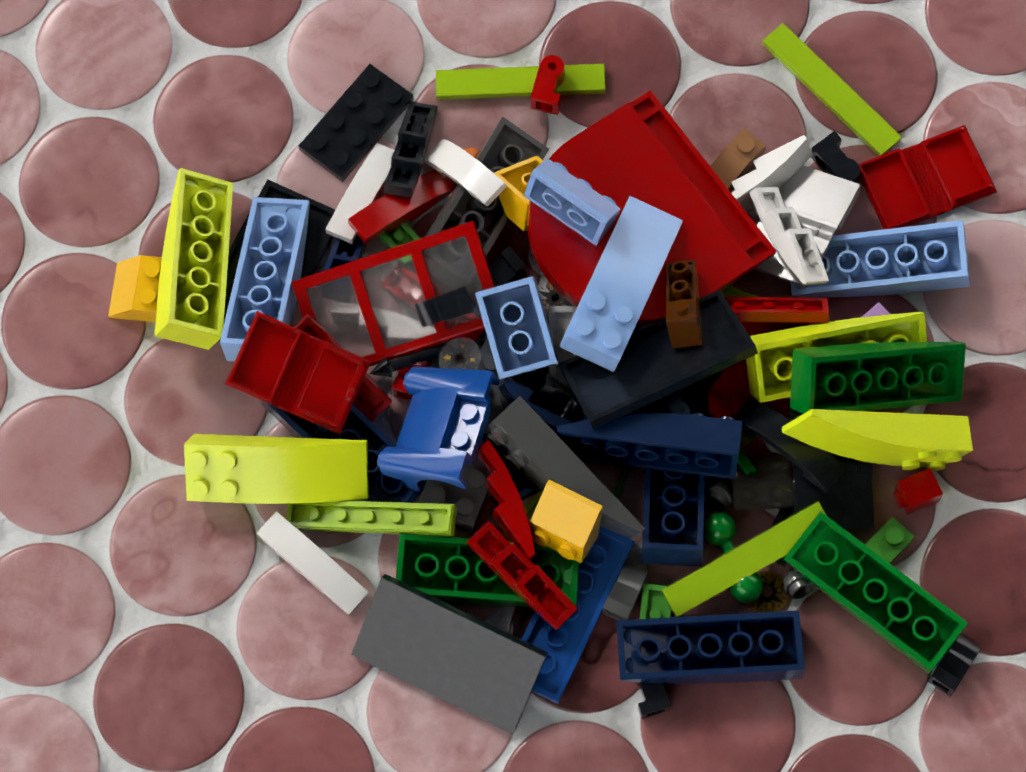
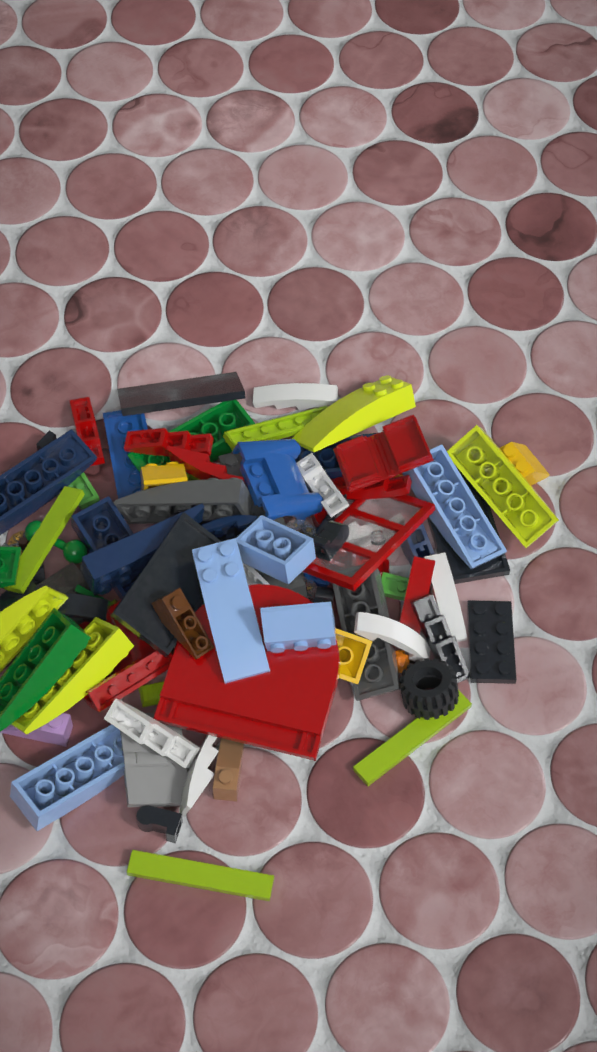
camera: 135 degrees right, 15 degrees down
(390, 391) = (321, 483): none -> white slope
(463, 78) = (427, 675): none -> black tyre
(548, 78) = (390, 734): red leg -> none
(590, 697) = (86, 426): none -> red slope
(625, 593) = (105, 482): dark grey leg -> none
(925, 179) = (90, 857): red piece -> none

